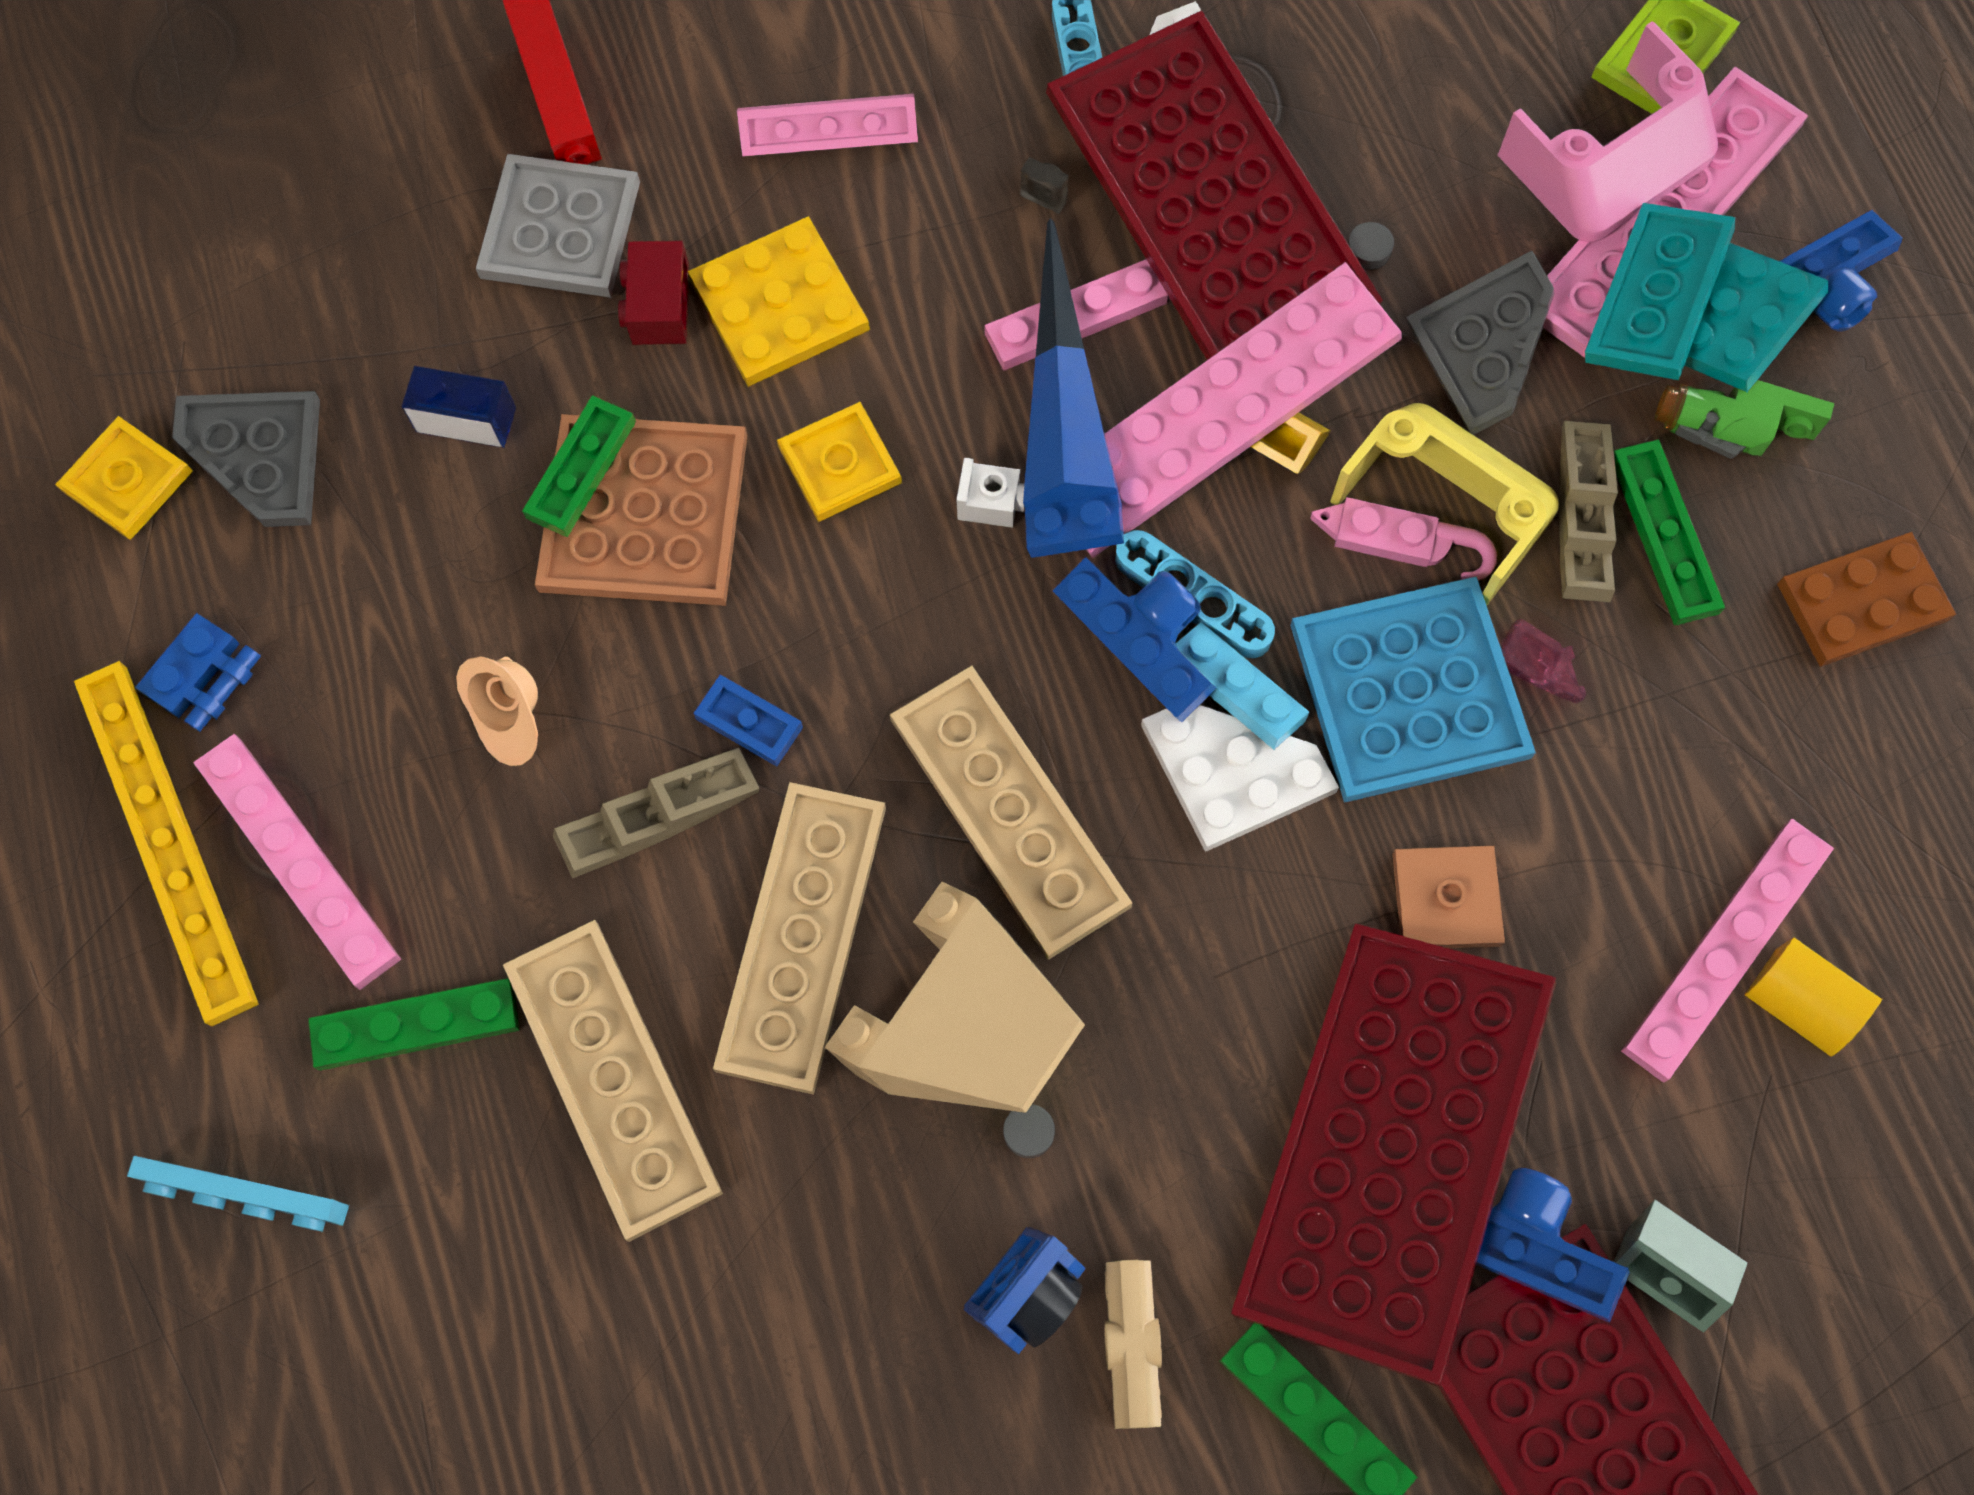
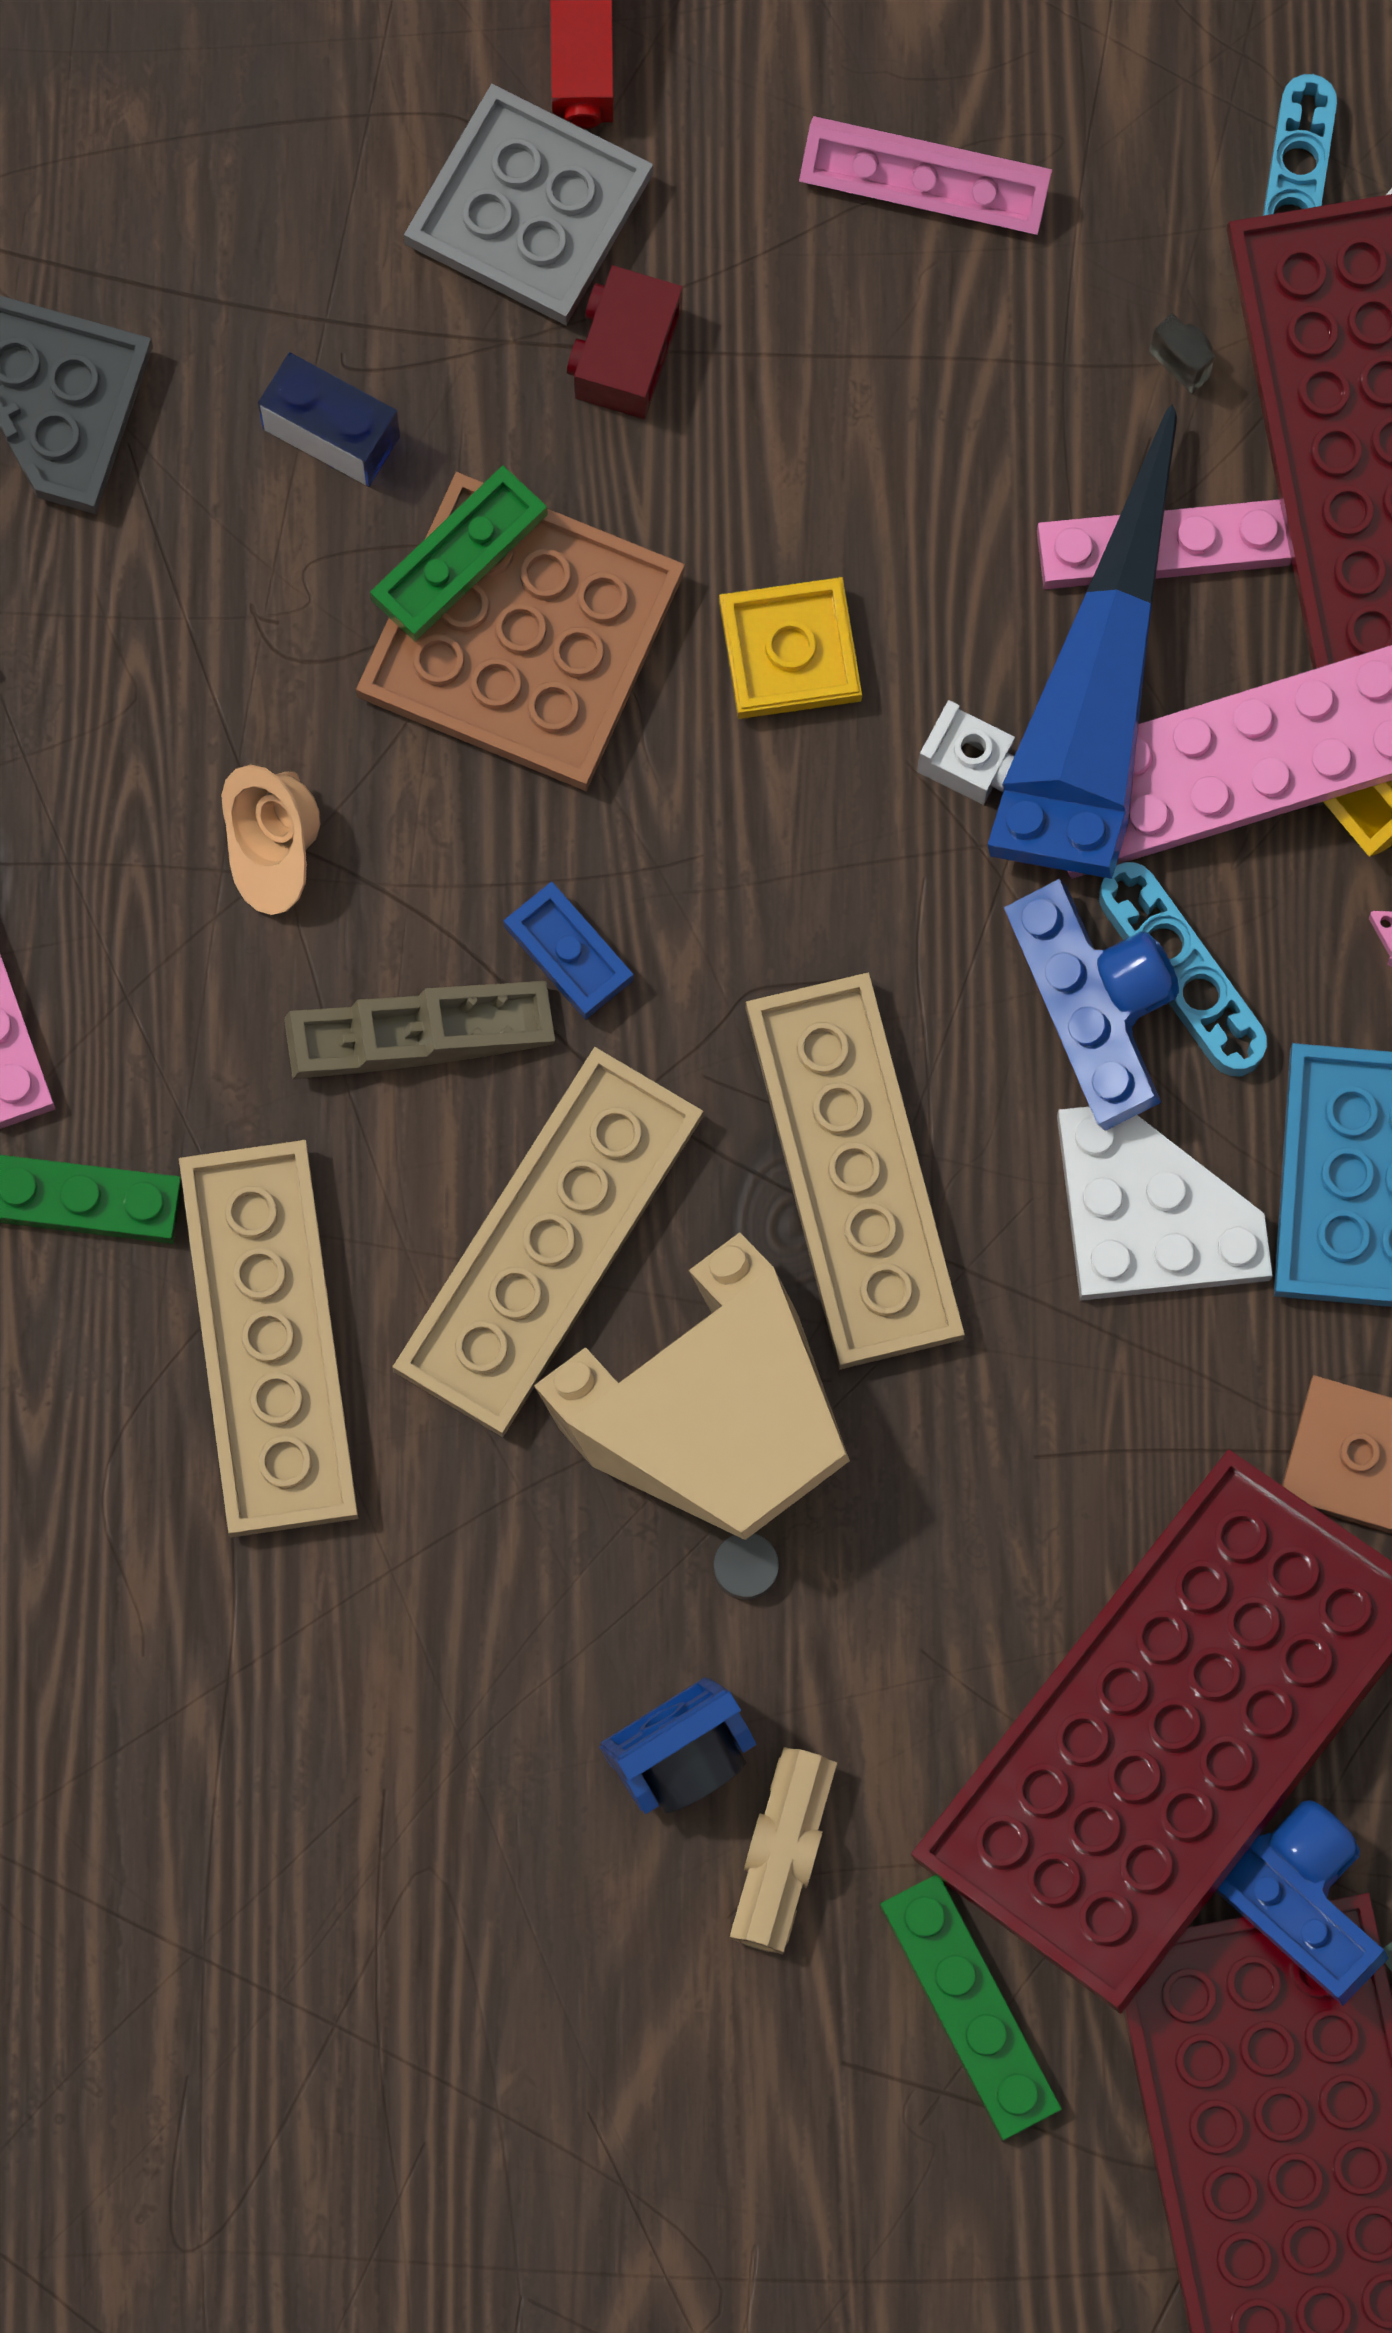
camera: 15 degrees right, 5 degrees up
(778, 301) = (782, 400): yellow plate -> none
(1242, 687) = (1197, 1109): medium azure plate -> none

